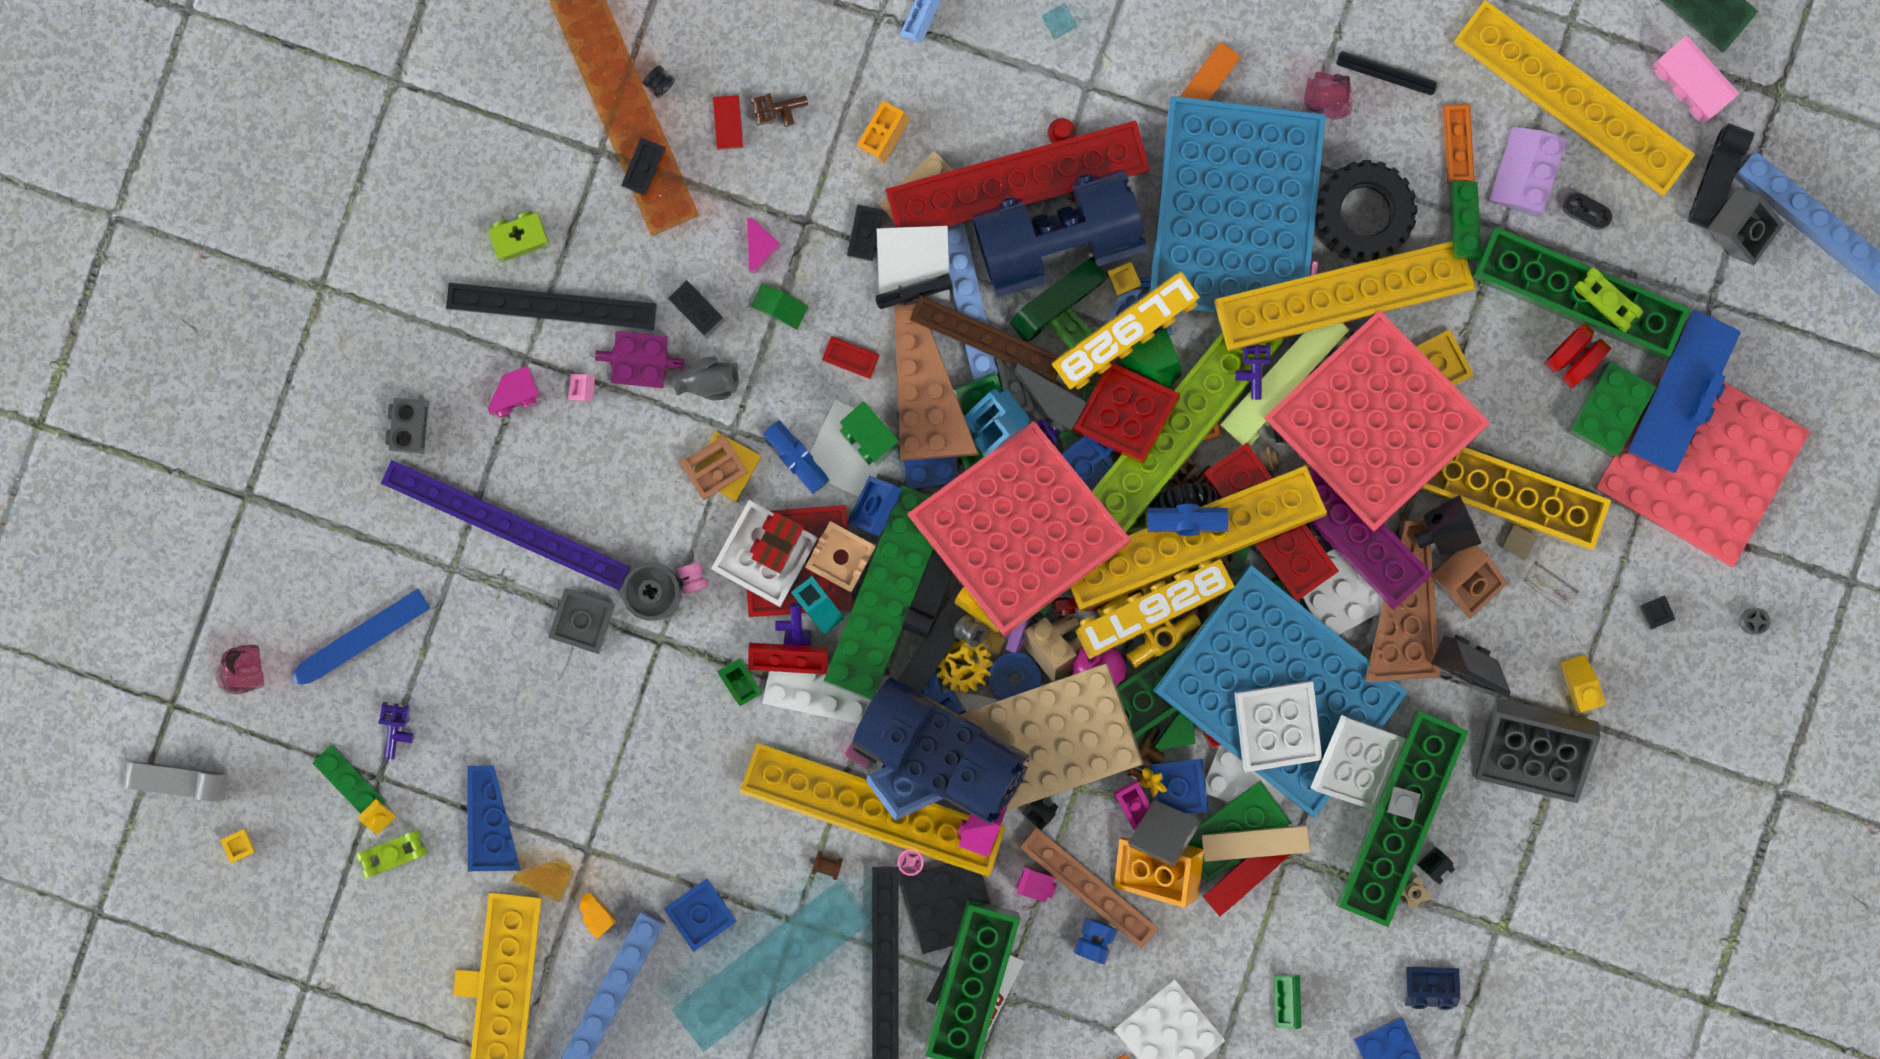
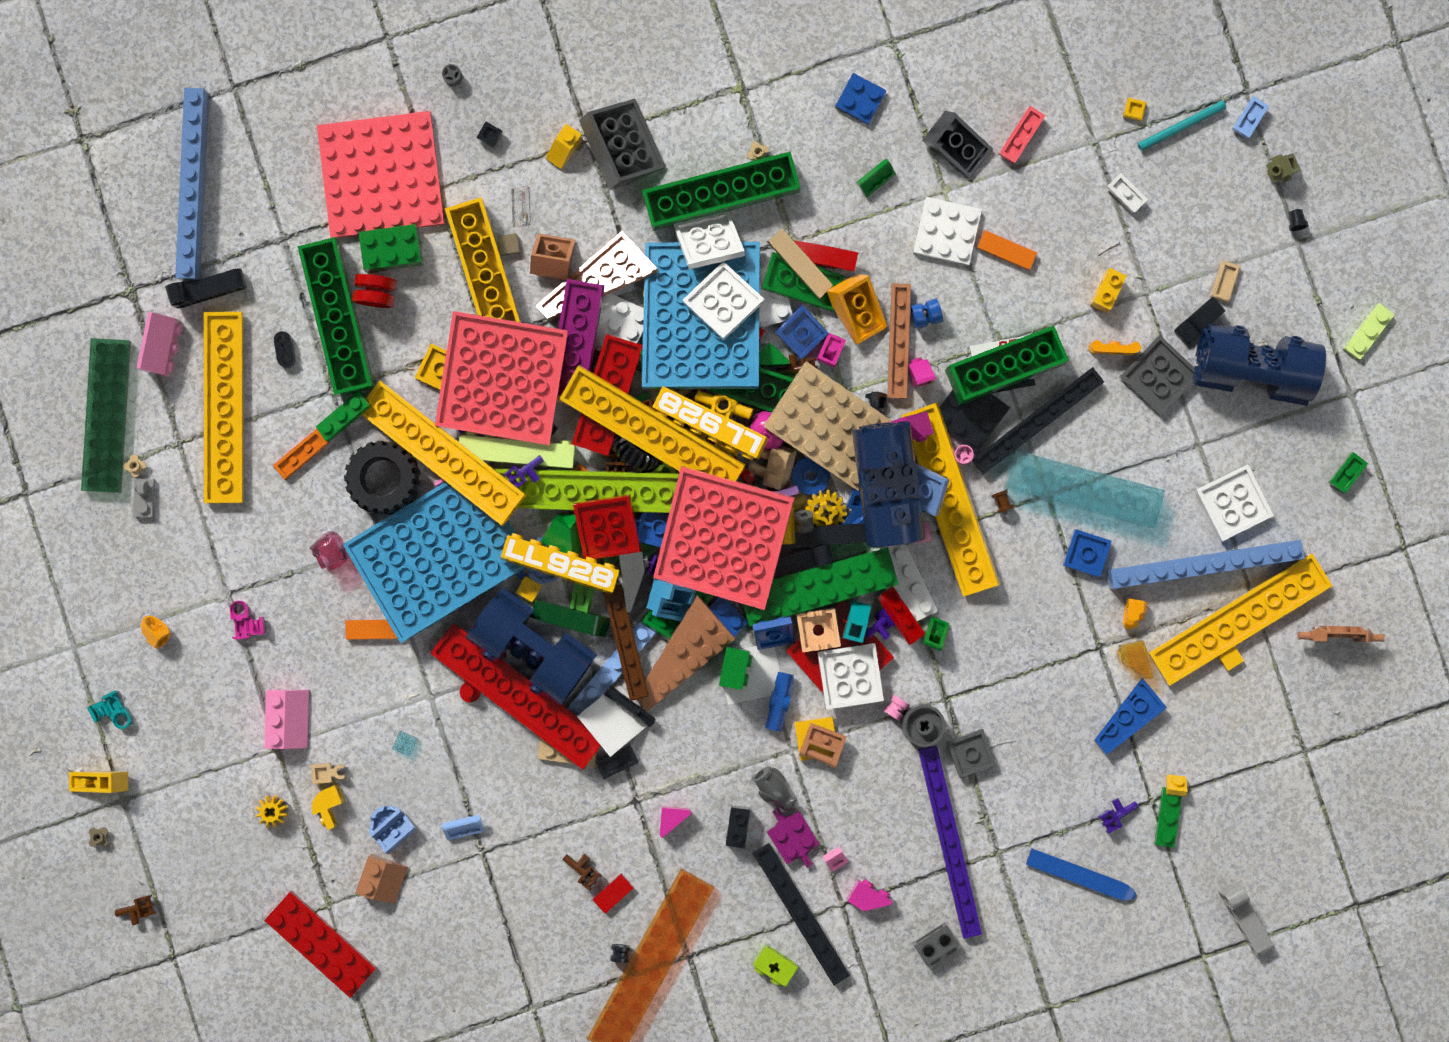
camera: 135 degrees left, 0 degrees up
(238, 846) = (1255, 853): yellow plate -> none
(240, 670) = (1154, 931): clear pink piece -> none
(391, 854) = (1190, 760): lime plate -> none
(643, 167) = (678, 923): black plate -> none
(777, 542) = (839, 673): brick -> none
(779, 306) = (698, 779): green slope -> none
(850, 357) = (696, 714): red tile -> none
(883, 131) = (549, 797): light orange hinge -> none
(1152, 781) = (810, 350): yellow plant -> none
(1164, 833) = (835, 320): dark grey tile -> none
(1187, 520) = (643, 442): blue piece -> none
(1270, 459) = (570, 423): tan plate -> none
(1386, 73) = (290, 527): black axle -> none
(1403, 803) = (712, 196): light grey plate -> none
(1432, 987) = (804, 101): dark blue bracket -> none
(1436, 864) = (732, 152): black tile -> none
(1449, 528) = (532, 289): black torso -> none
(1471, 664) = (601, 217): black slope -> none
(1527, 170) = (286, 401): lavender slope -> none
(1608, 300) = (328, 296): lime plate -> none
(1685, 391) = (348, 213): blue bracket -> none
(1746, 226) = (224, 250): dark grey brick -> none

